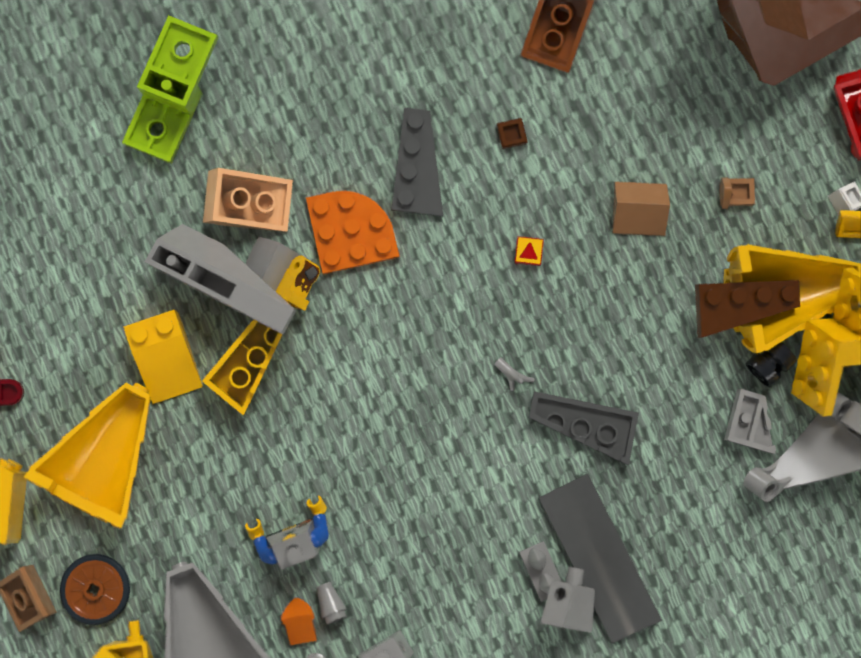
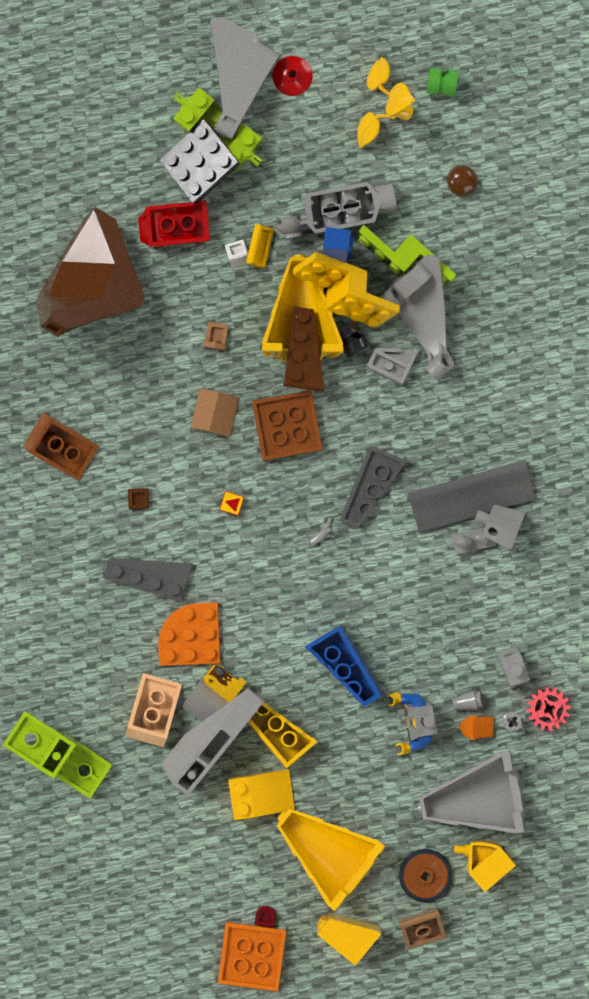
camera: 80 degrees left, 5 degrees up
(350, 434) = (345, 663): none -> blue wedge
(642, 302) = (287, 425): none -> dark orange plate

